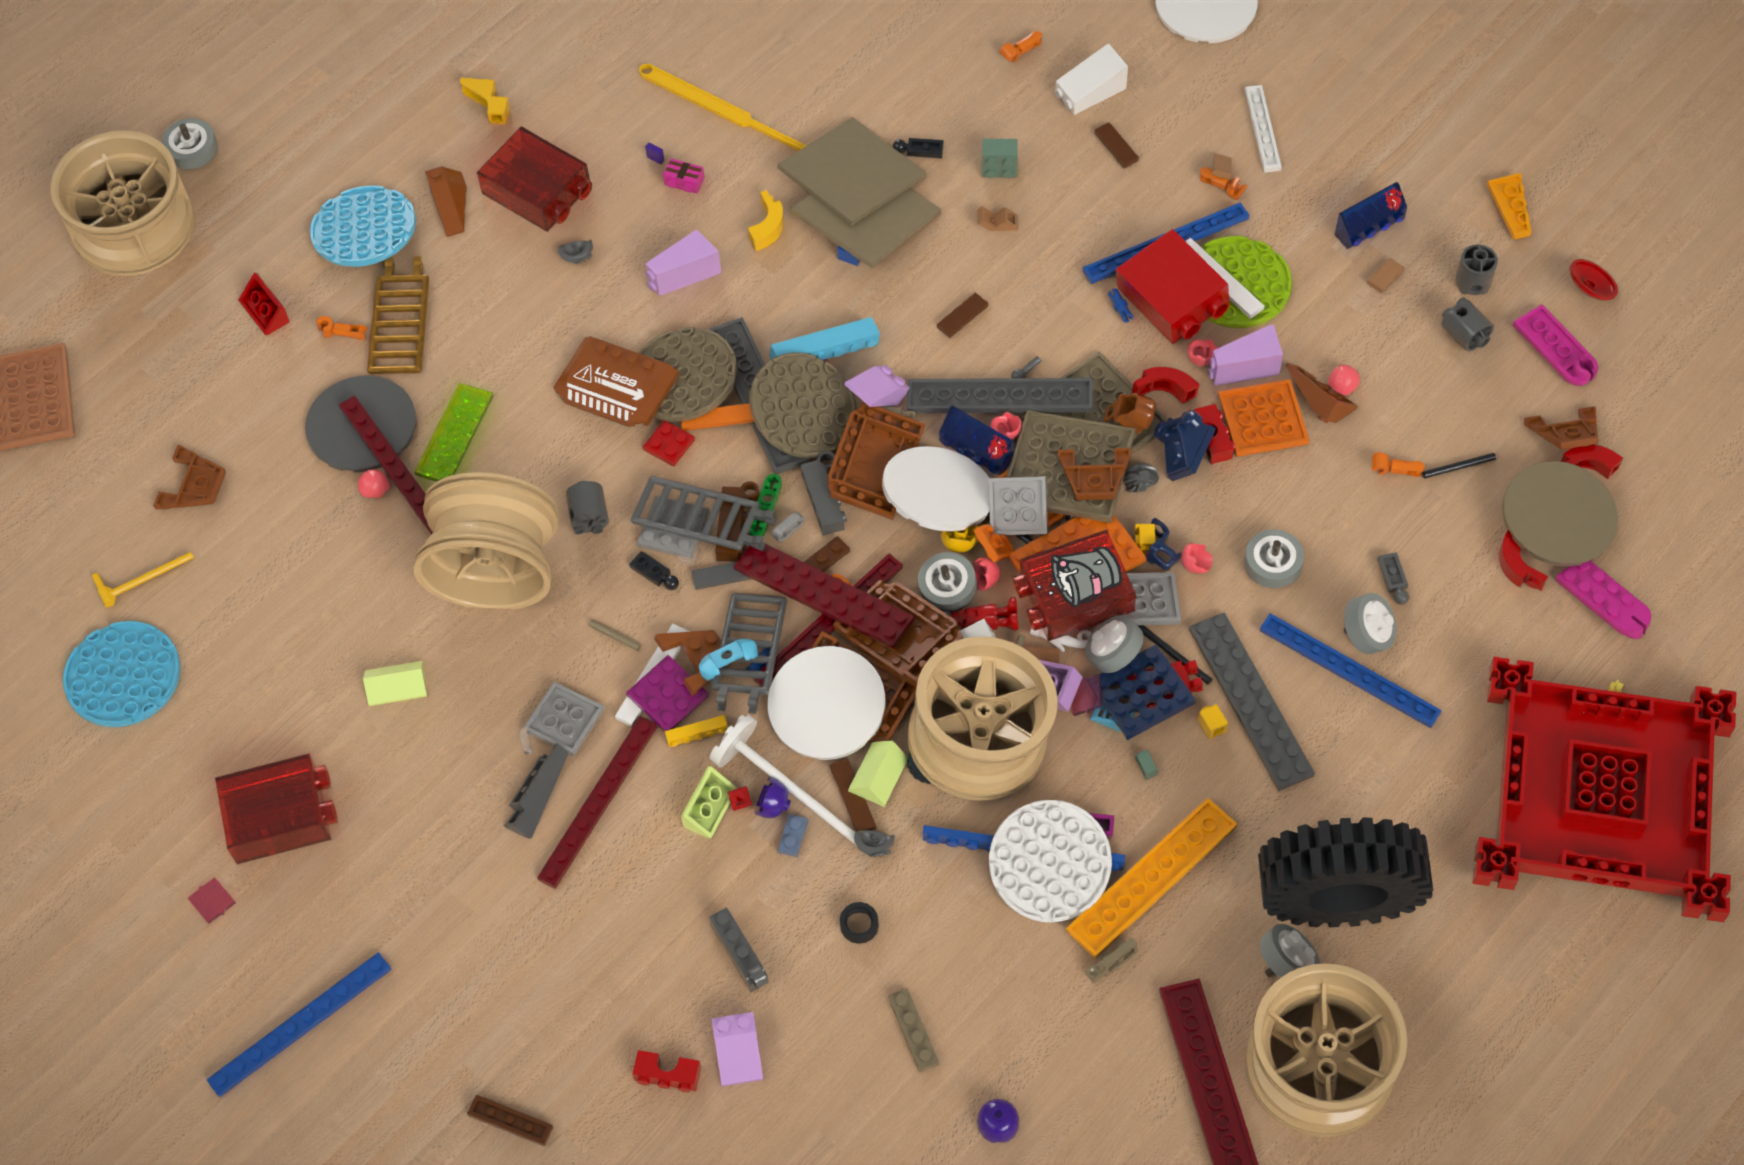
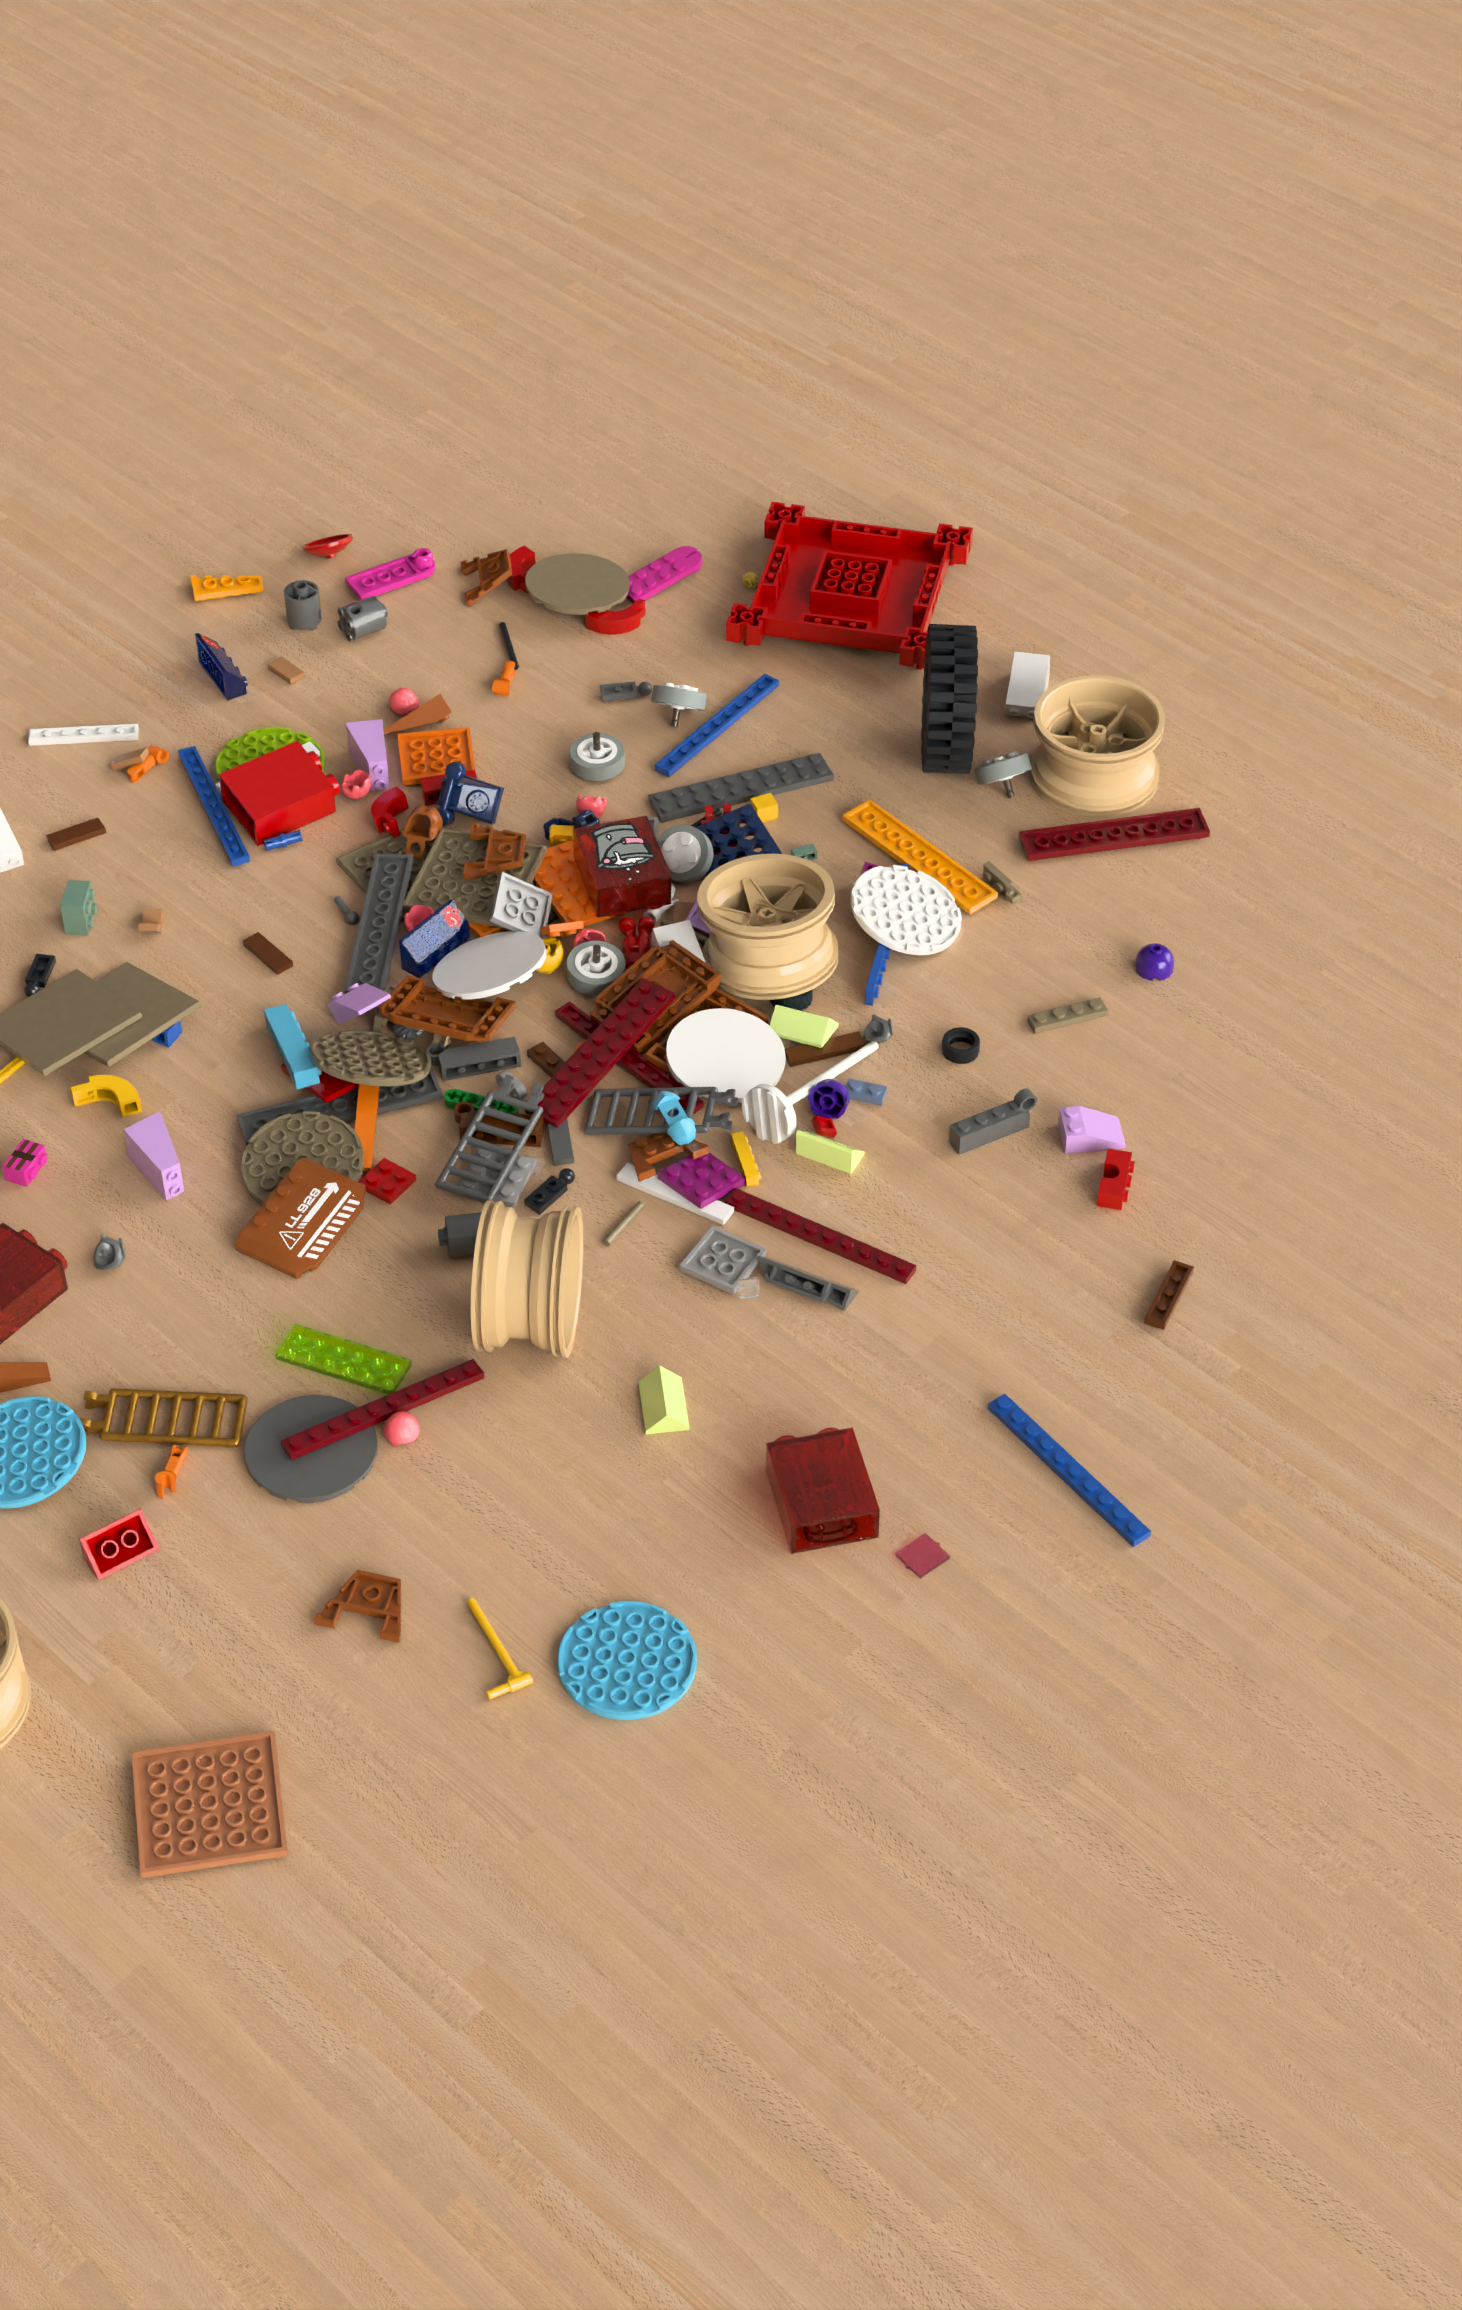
camera: 90 degrees left, 15 degrees down
(1456, 986) = (1027, 683): none -> white slope

